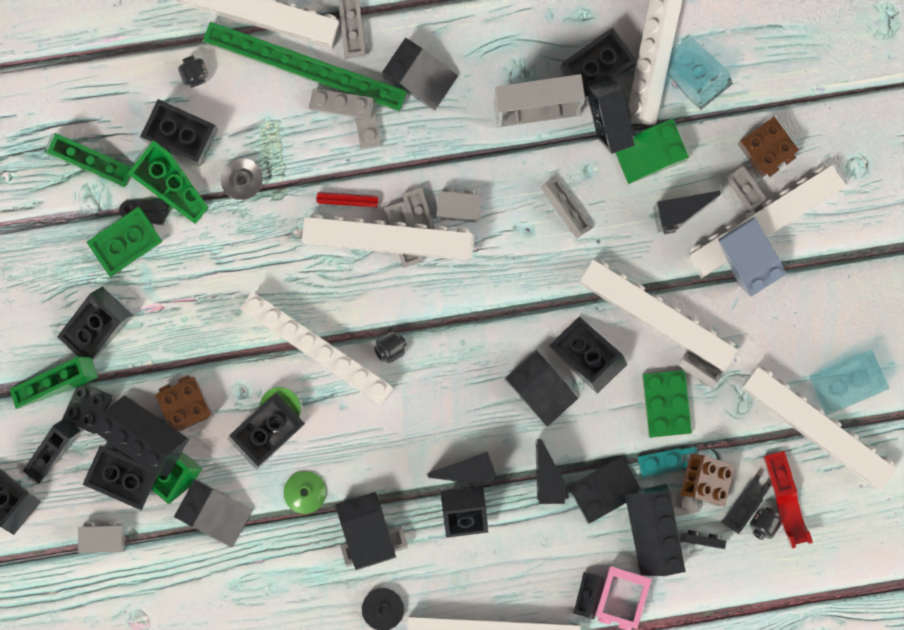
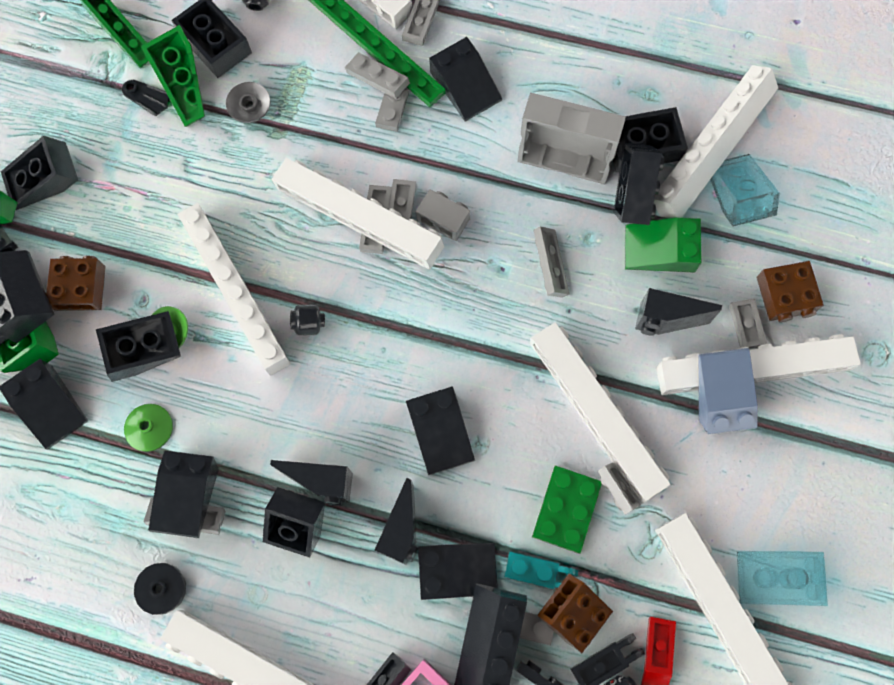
camera: 30 degrees right, 10 degrees down
(124, 241) = (109, 111): green plate -> none
(347, 199) = (338, 164): red axle -> none
(589, 354) = (507, 419): black slope -> none

